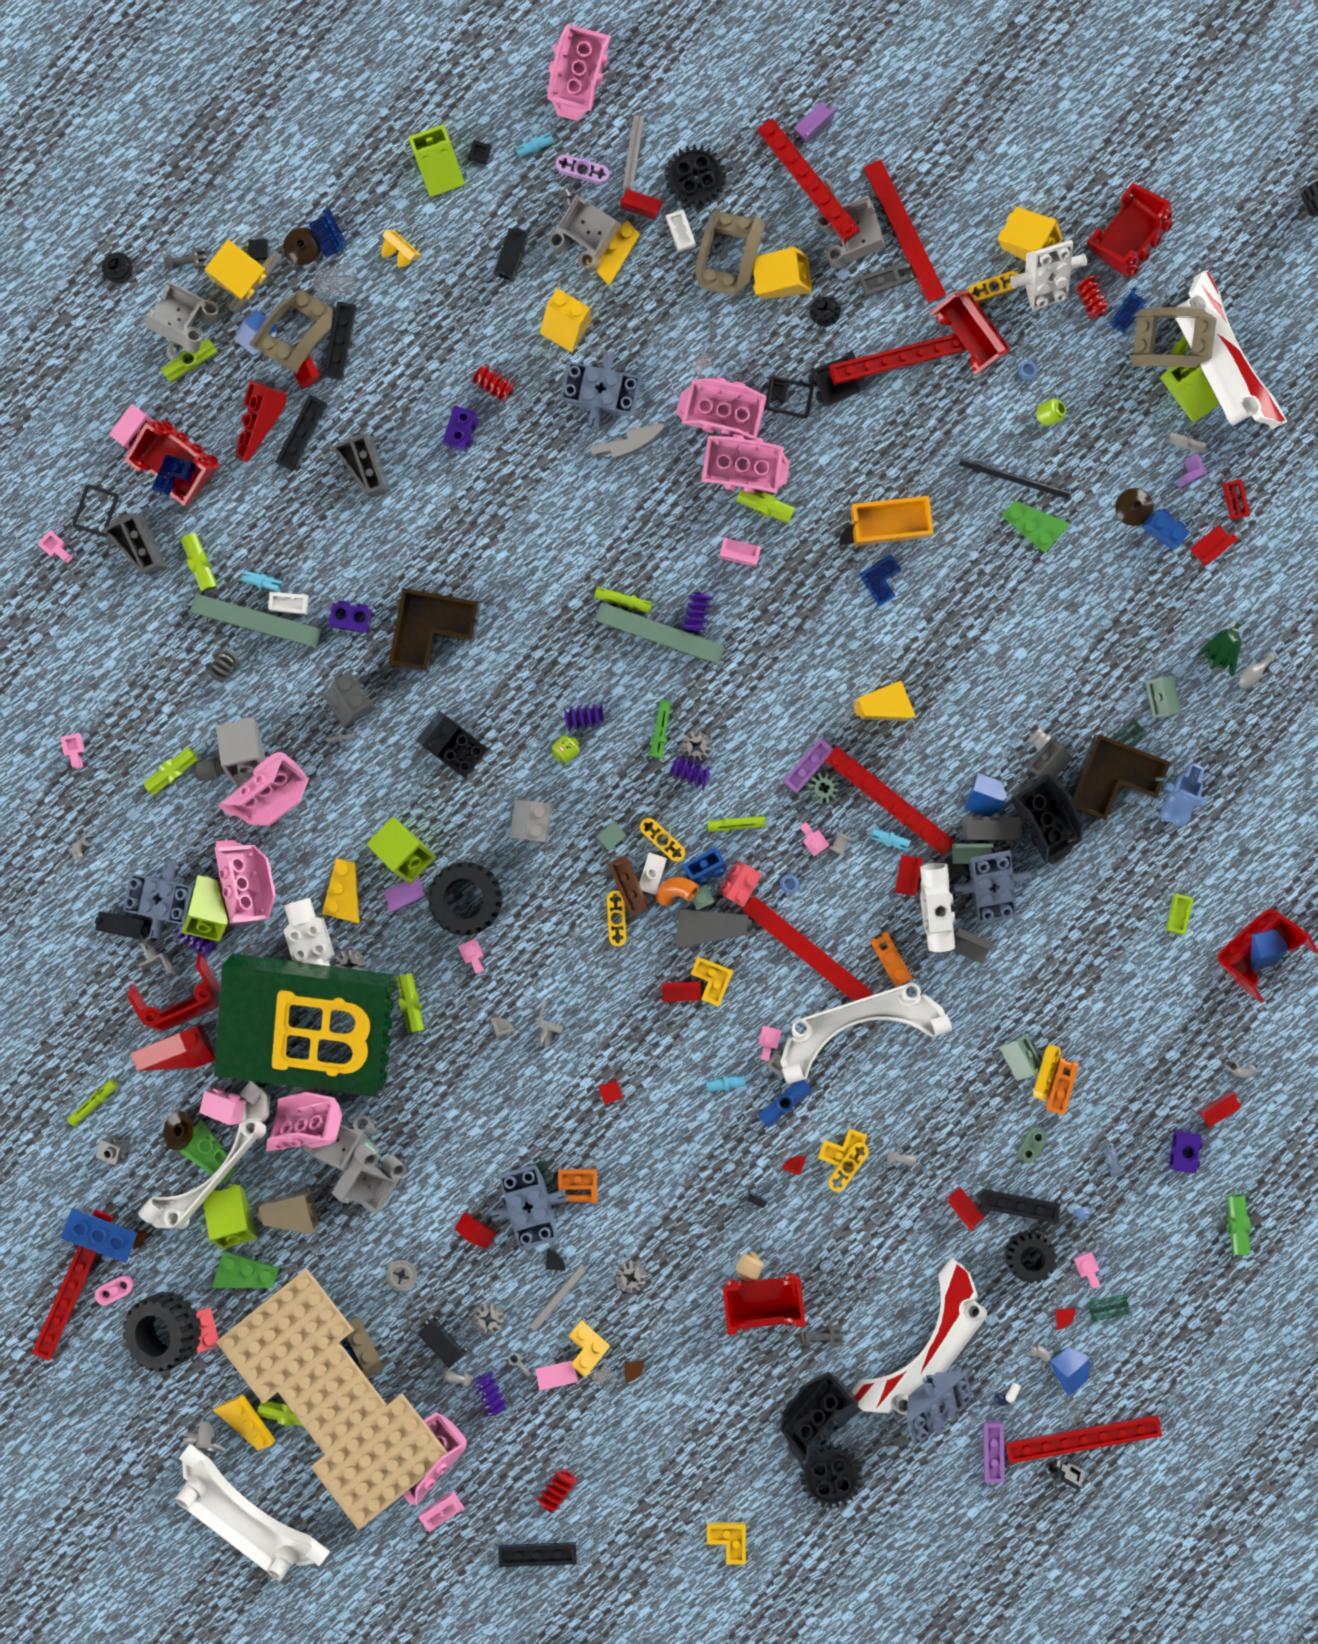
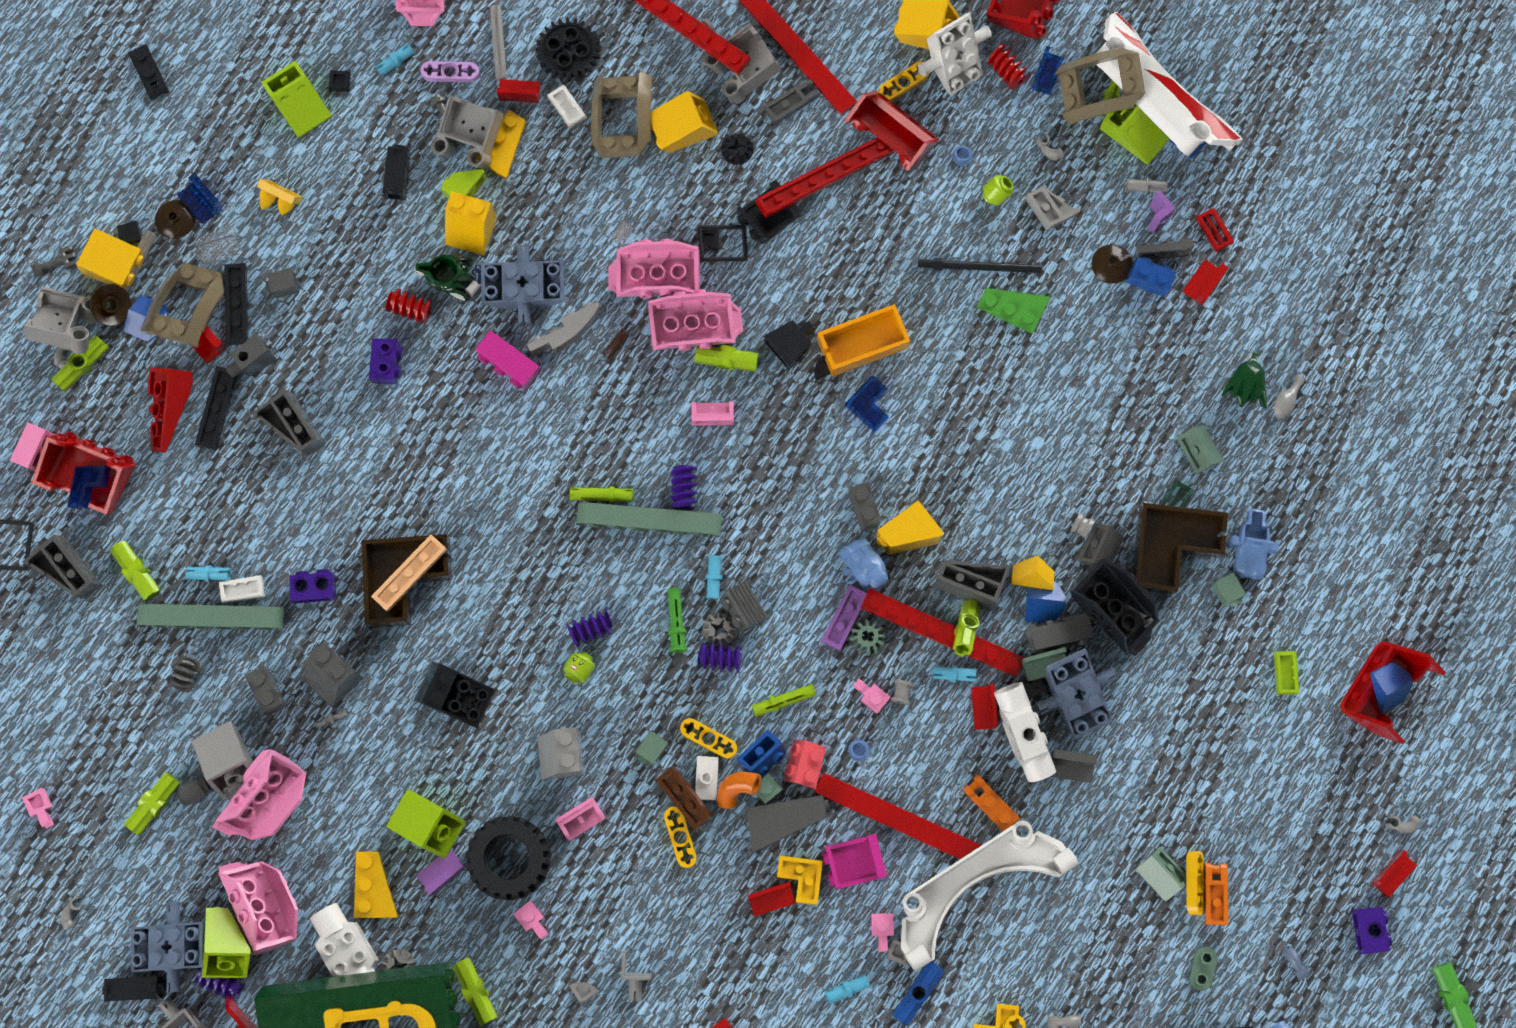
camera: 15 degrees left, 10 degrees down
(235, 316) = (119, 306): none -> dark brown dish
(289, 698) = (265, 690): none -> dark grey brick
(307, 98) = (148, 71): none -> black plate
(347, 393) = (251, 357): none -> dark grey torso
(385, 332) = (282, 283): none -> dark grey brick
(437, 629) = (409, 573): none -> light nougat plate
(534, 362) = (446, 274): none -> dark green piece
(535, 880) = (580, 818): none -> bright pink hinge
(558, 378) = (475, 285): none -> arm
(569, 280) = (463, 182): none -> lime slope
(569, 456) = (507, 361): none -> dark pink brick
(666, 465) = (617, 345): none -> reddish brown piece
(703, 699) = (713, 577): none -> medium azure pin
(722, 733) = (743, 607): none -> dark grey brick
(760, 978) = (854, 862): none -> dark pink panel
(825, 505) = (790, 342): none -> black torso
(838, 723) = (865, 564): none -> medium blue piece
(851, 671) = (864, 506): none -> dark grey brick
(912, 803) = (966, 627): none -> lime piece
(929, 764) = (972, 581): none -> dark grey wedge
(983, 770) = (1033, 573): none -> yellow slope
(1093, 441) = (1050, 208): none -> light grey wing
(1109, 390) = (1052, 154): none -> light grey arm
(1151, 829) = (1229, 590): none -> sand green brick
(1185, 506) = (1165, 249): none -> dark grey hinge

